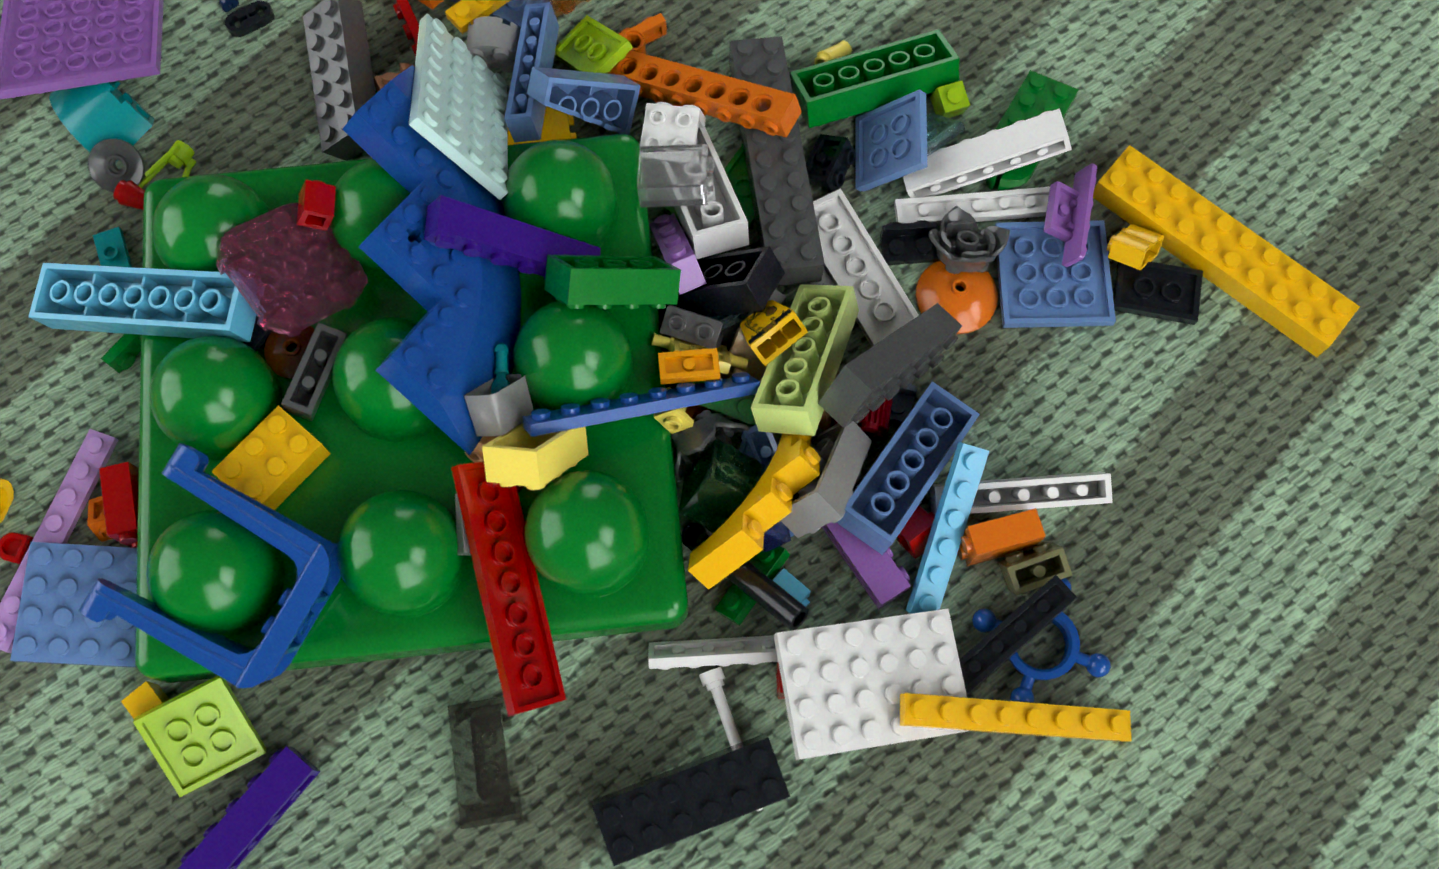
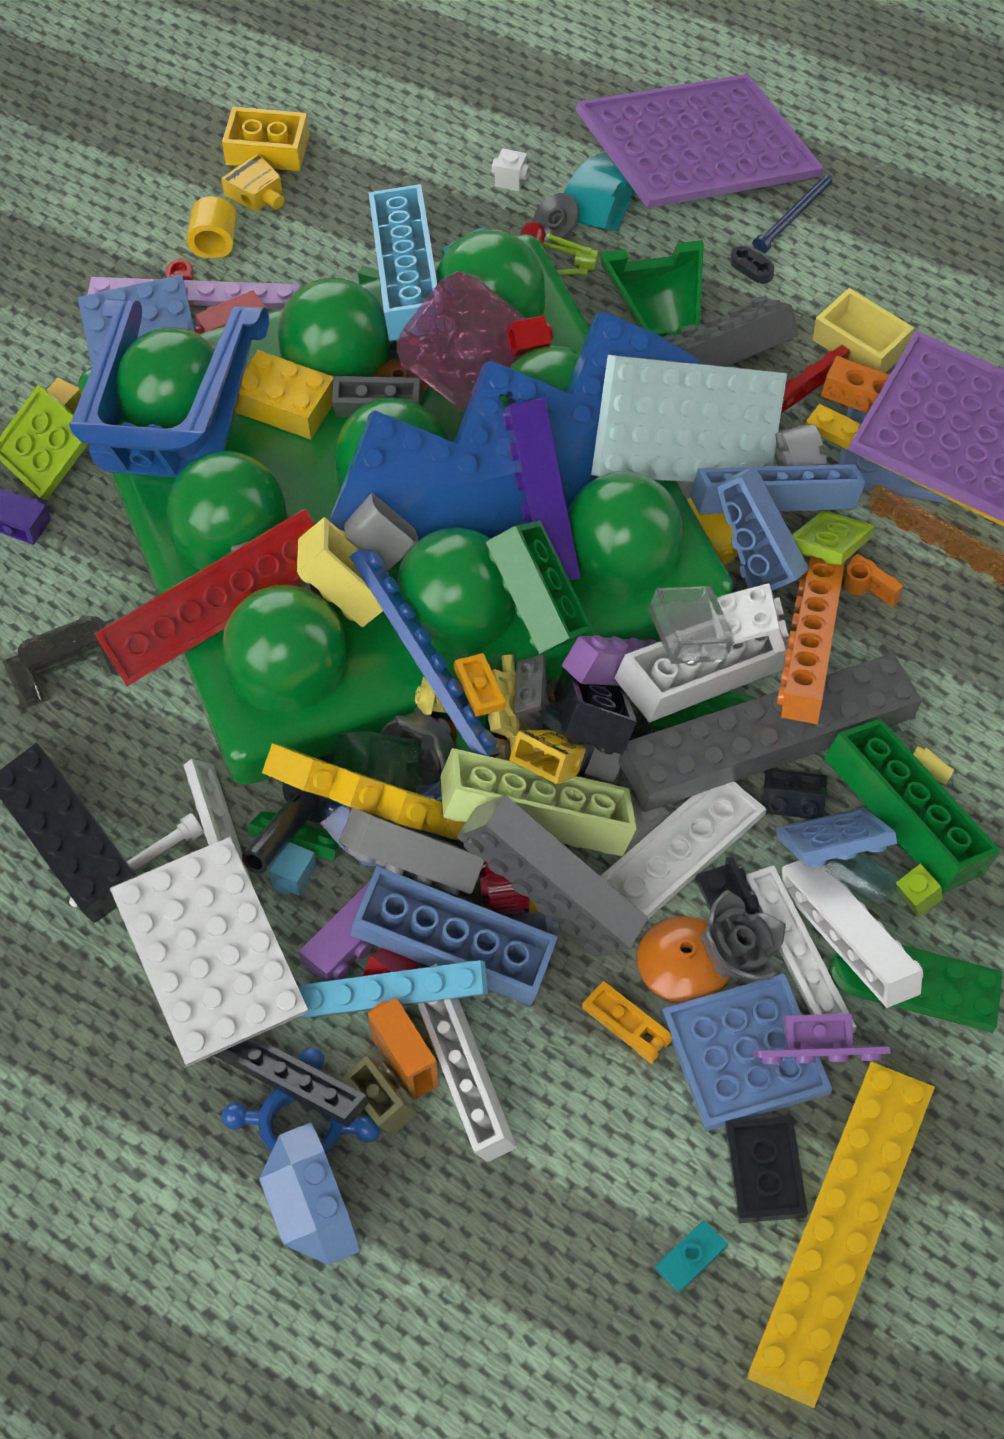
camera: 75 degrees right, 15 degrees down
(32, 188) = (510, 169): none -> white brick
(255, 97) = (662, 290): none -> green cone
(501, 368) = (418, 526): teal piece -> none
(1004, 355) = (627, 1021): none -> light orange plate
(1014, 717) = (207, 1106): yellow plate -> none
(1114, 651) = (307, 1198): none -> medium blue wedge
(1135, 246) = (804, 1123): yellow brick -> none
(1215, 367) = (691, 1256): none -> teal plate

